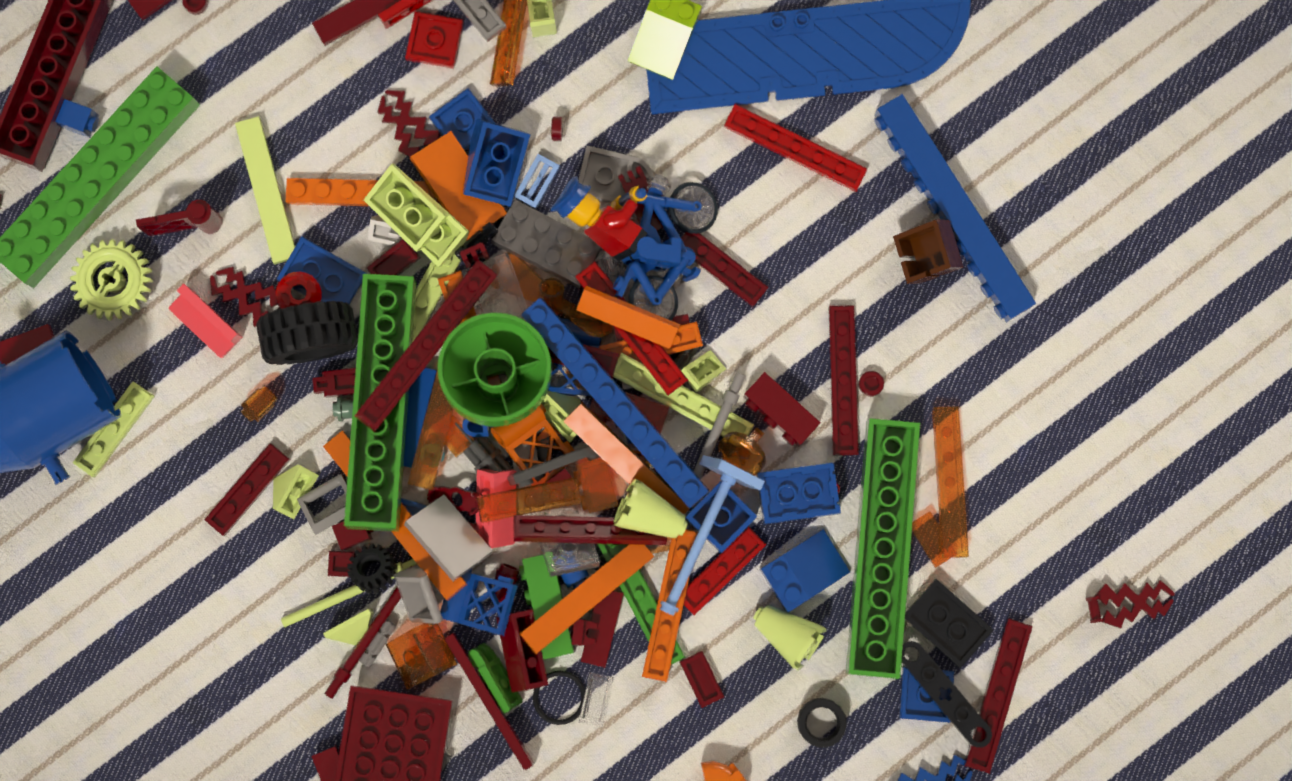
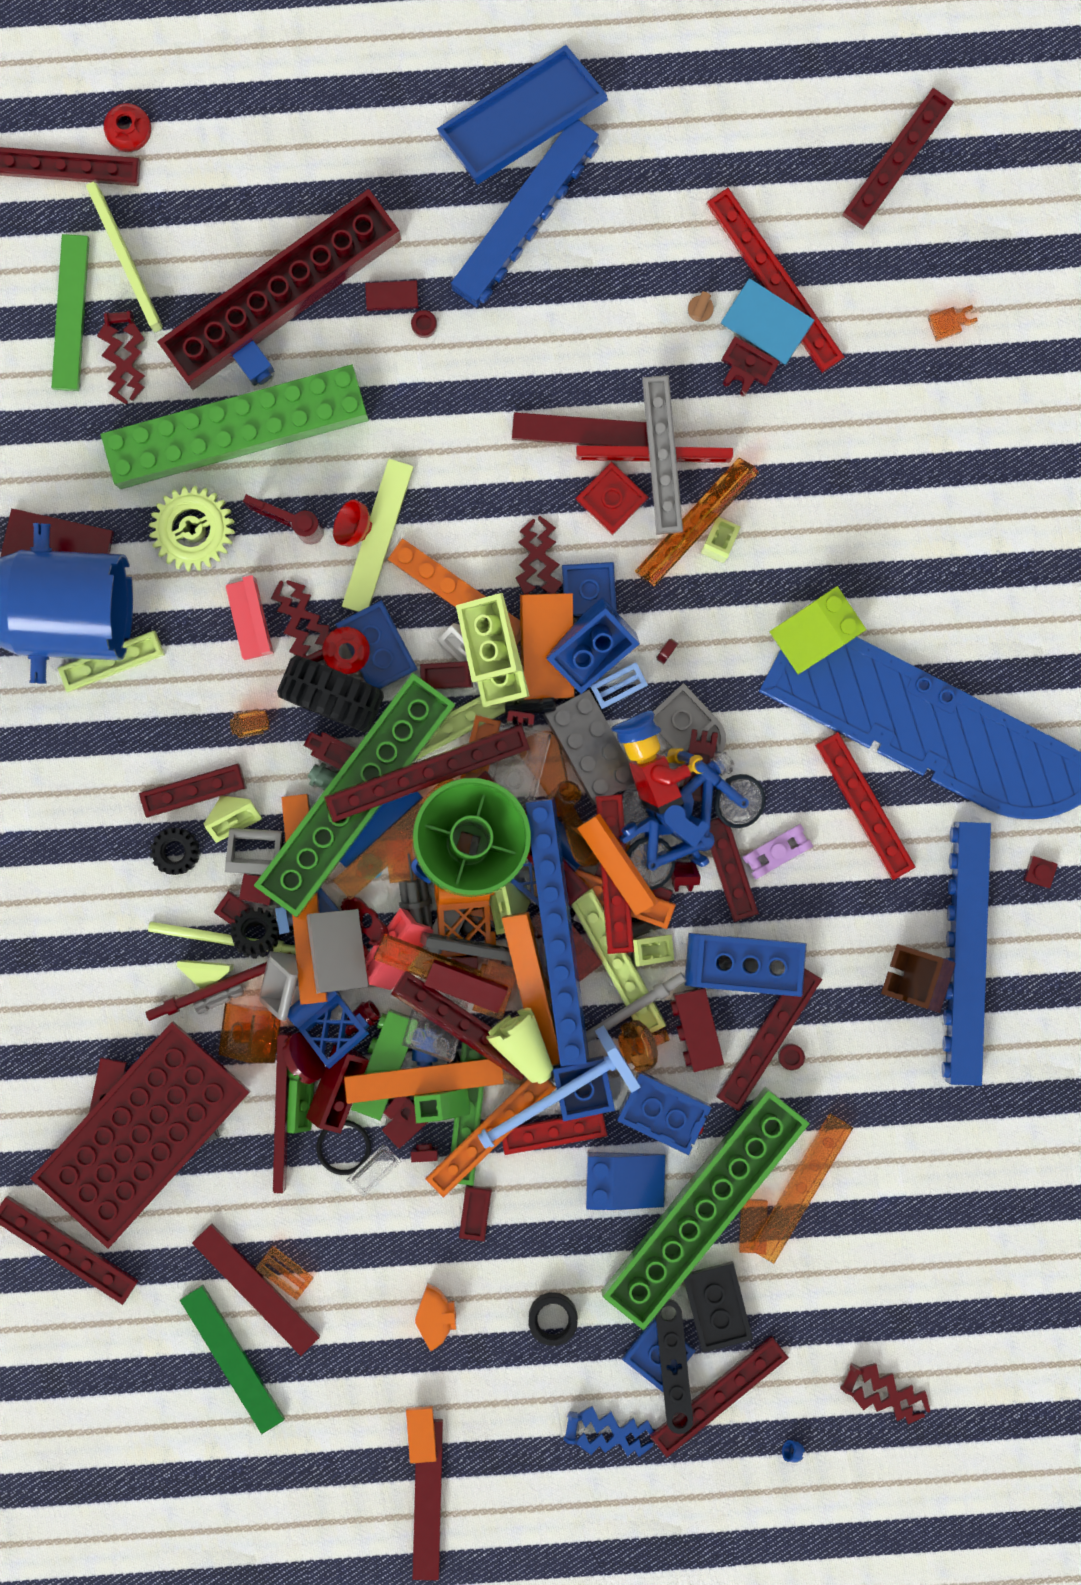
camera: 30 degrees right, 5 degrees up
(238, 192) = (351, 524): none -> red piece
(250, 540) = (159, 848): none -> black tyre
(390, 542) = (284, 920): none -> medium blue plate
(477, 643) = (302, 1059): none -> dark red tile
(570, 495) = (466, 986): none -> dark red tile
(615, 605) = (441, 1105): none -> bright green slope
(627, 656) = (424, 1153): none -> dark red plate
(690, 293) = (685, 875): none -> dark red tile
(746, 340) = (704, 968): none -> blue hinge
(750, 228) = (777, 851): none -> lavender plate
(789, 634) = (574, 1226): yellowish green cone -> none
(968, 108) = (1040, 872): none -> dark red plate
(1082, 700) = (788, 1448): none -> blue hinge

